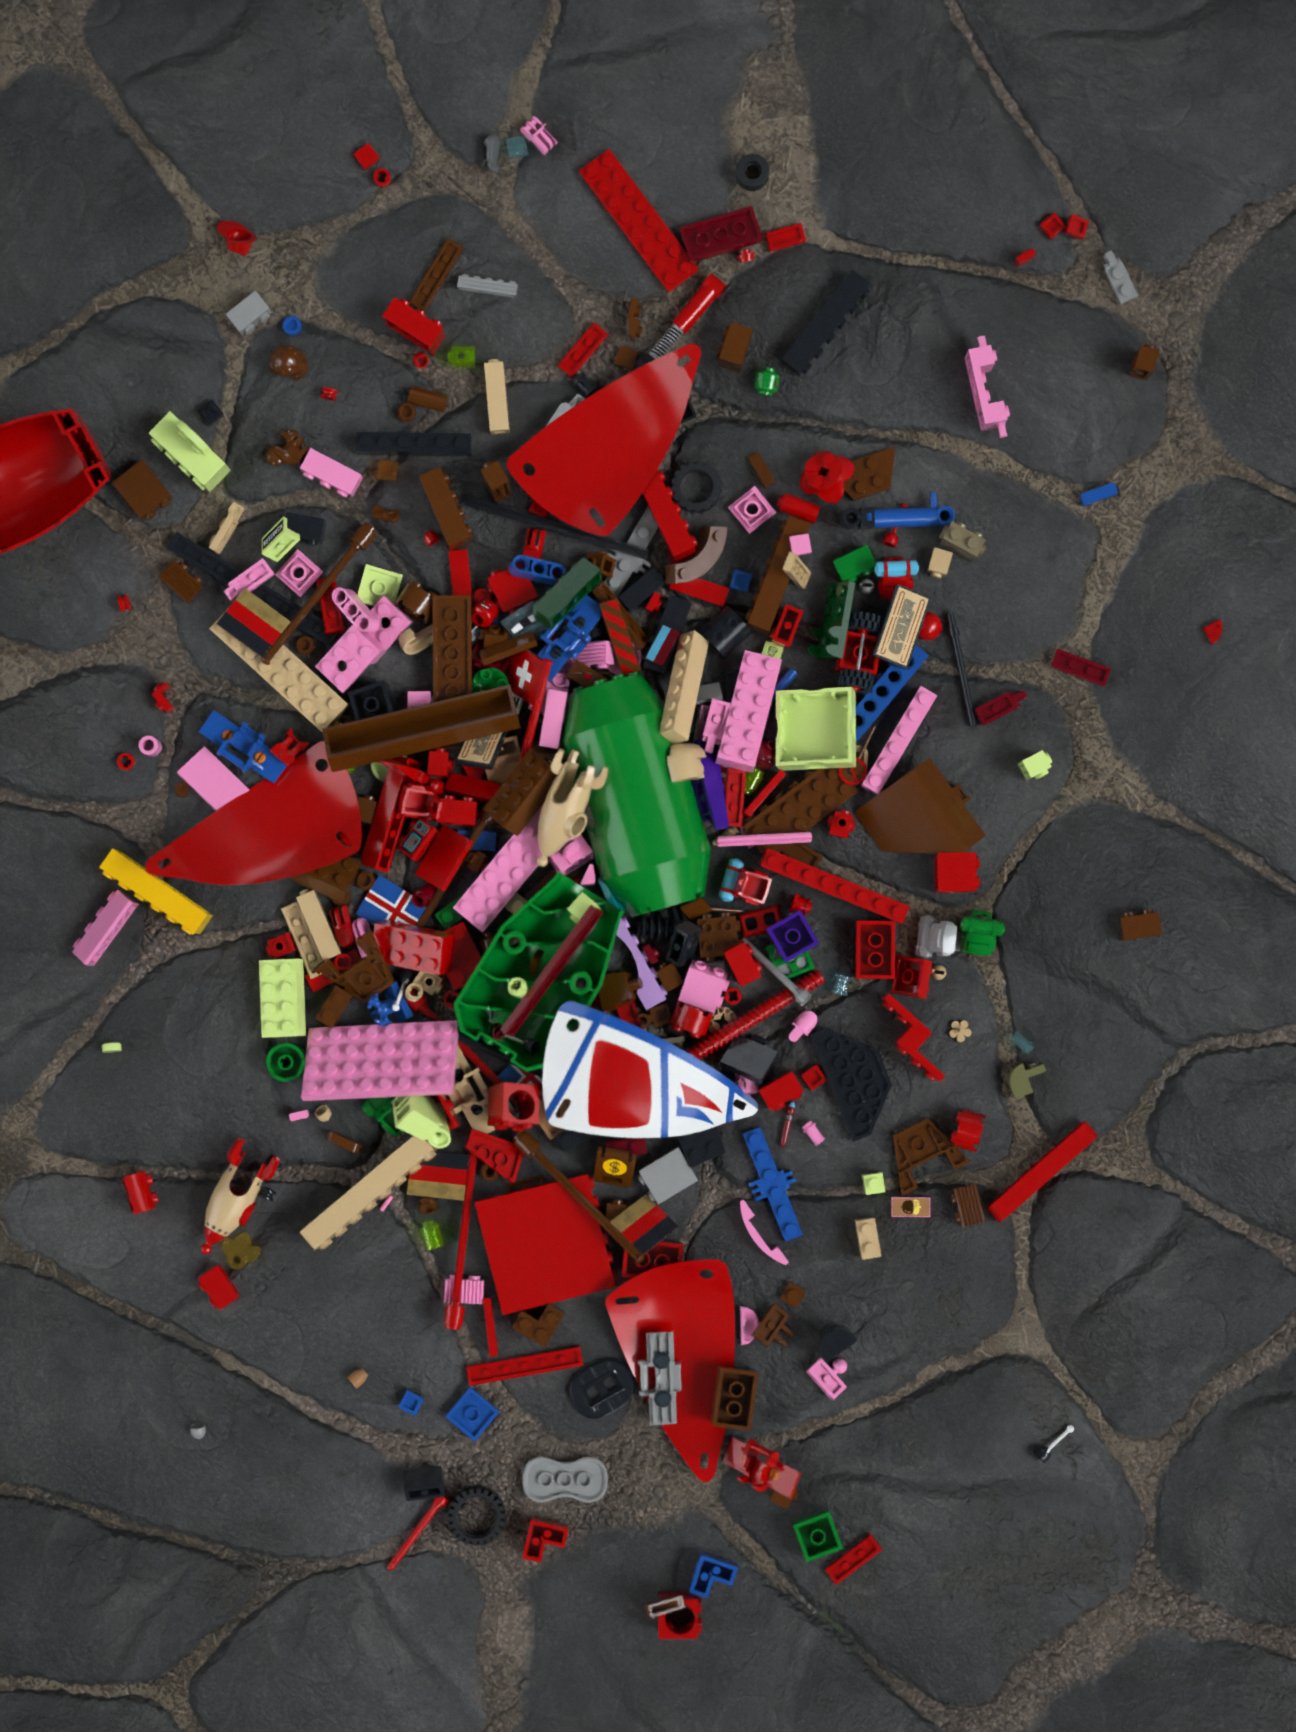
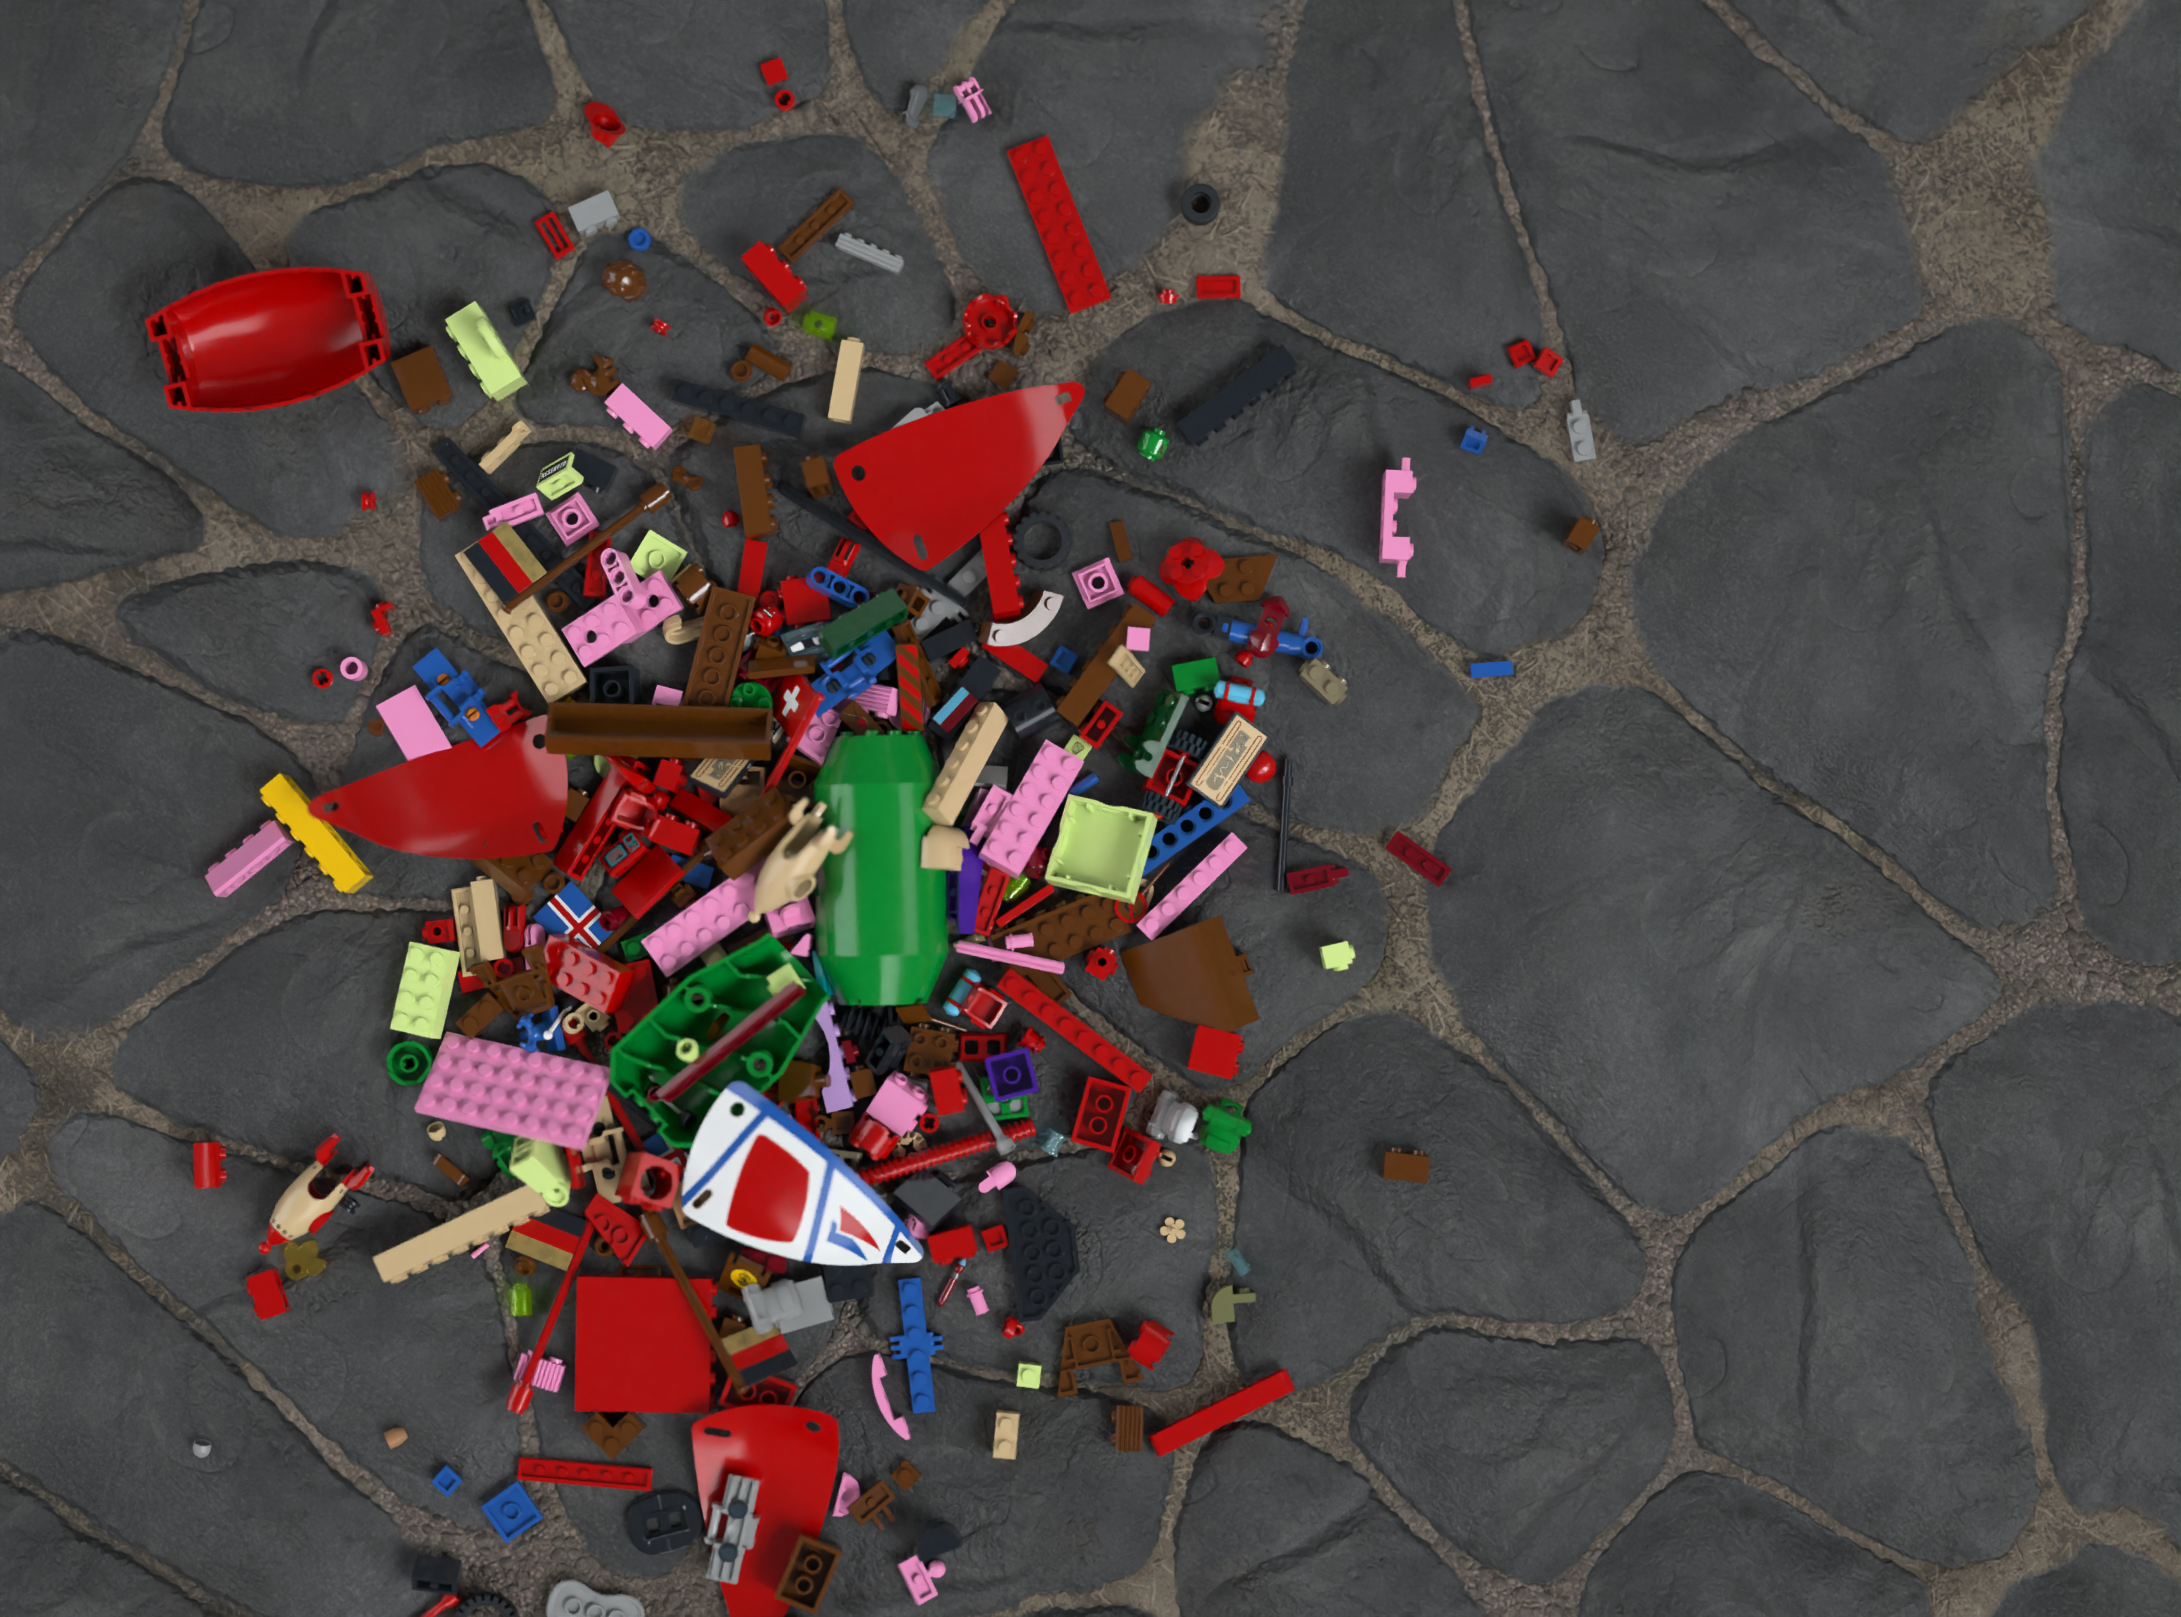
camera: 15 degrees right, 0 degrees up
(111, 1047) = (220, 994): yellowish green tile -> none
(232, 352) = (563, 252): none -> red tile
(299, 1115) = (408, 1126): bright pink tile -> none
(490, 1326) = (558, 1419): red tile -> none
(553, 718) = (810, 759): bright pink tile -> none
(605, 304) = (999, 311): none -> red plate
(644, 1181) = (772, 1304): none -> light grey piece
(687, 317) = (1115, 325): red piece -> none
(721, 234) = (1146, 265): dark red plate -> none
(768, 823) = (1019, 941): none -> bright pink pin
(846, 1148) = (1010, 1326): none -> red tile
(904, 518) = (1264, 640): none -> dark red piece
(910, 1206) = (1064, 1412): medium nougat tile -> none
(912, 1038) = (1115, 1224): red bracket -> none
(939, 563) = (1291, 699): tan brick -> none
(1033, 308) = (1474, 441): none -> blue tile
(1213, 631) = (1578, 857): red tile -> none

